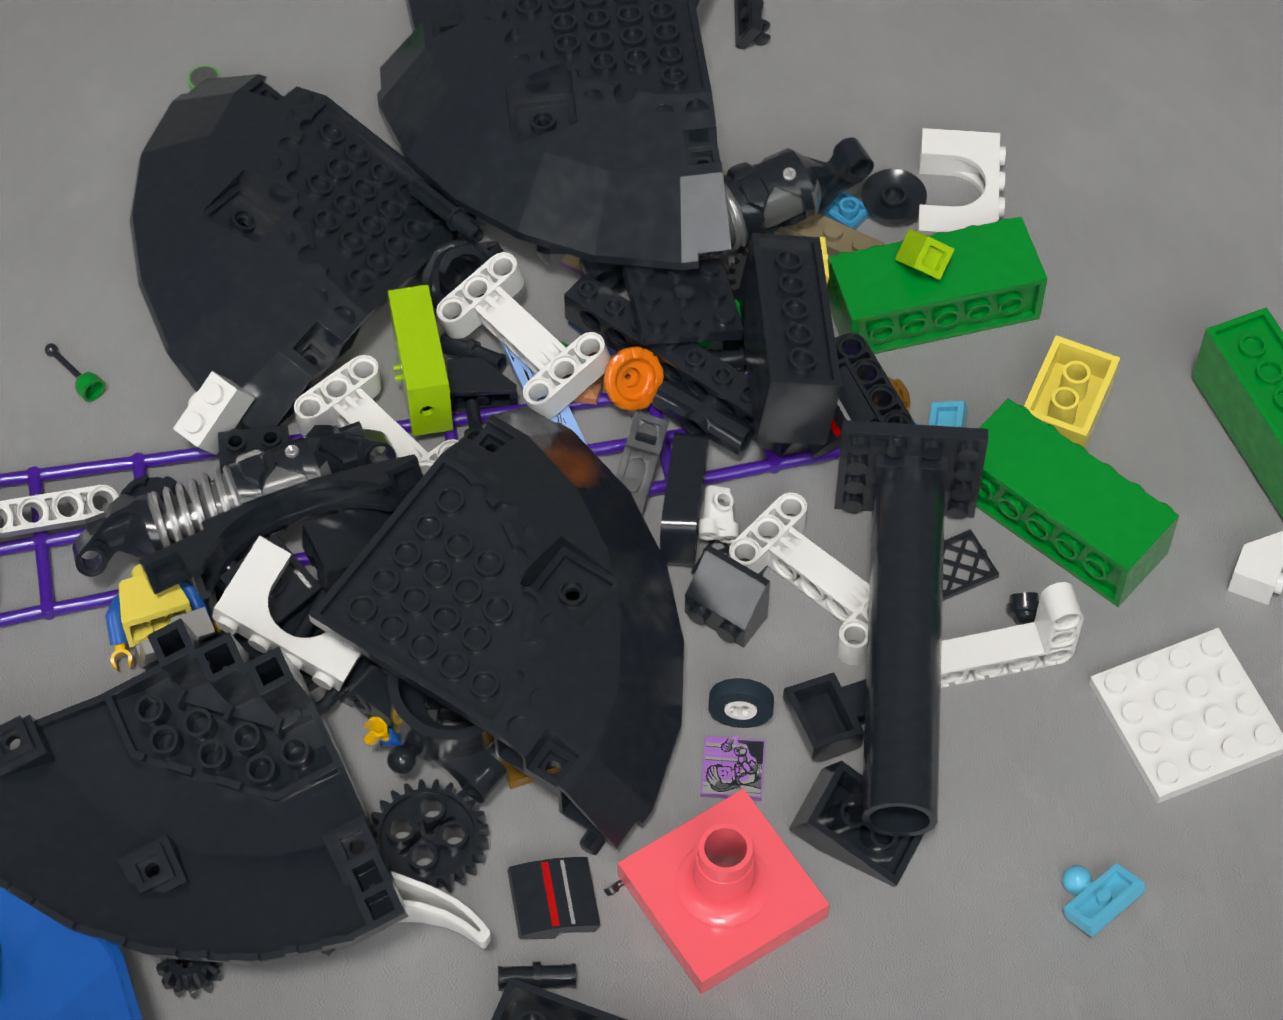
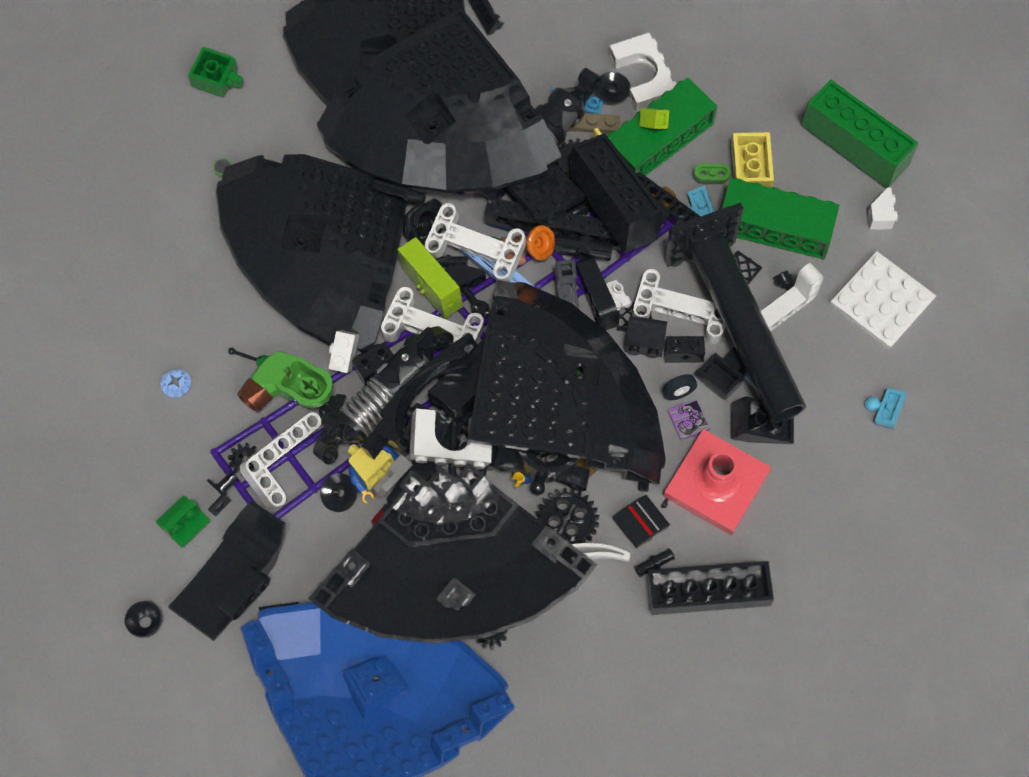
camera: 25 degrees left, 10 degrees up
(78, 631) = (331, 492): none -> black dish
(100, 414) = (289, 377): none -> bright green piece
(785, 647) = (684, 349): none -> black brick
(992, 388) = (711, 172): none -> bright green plate

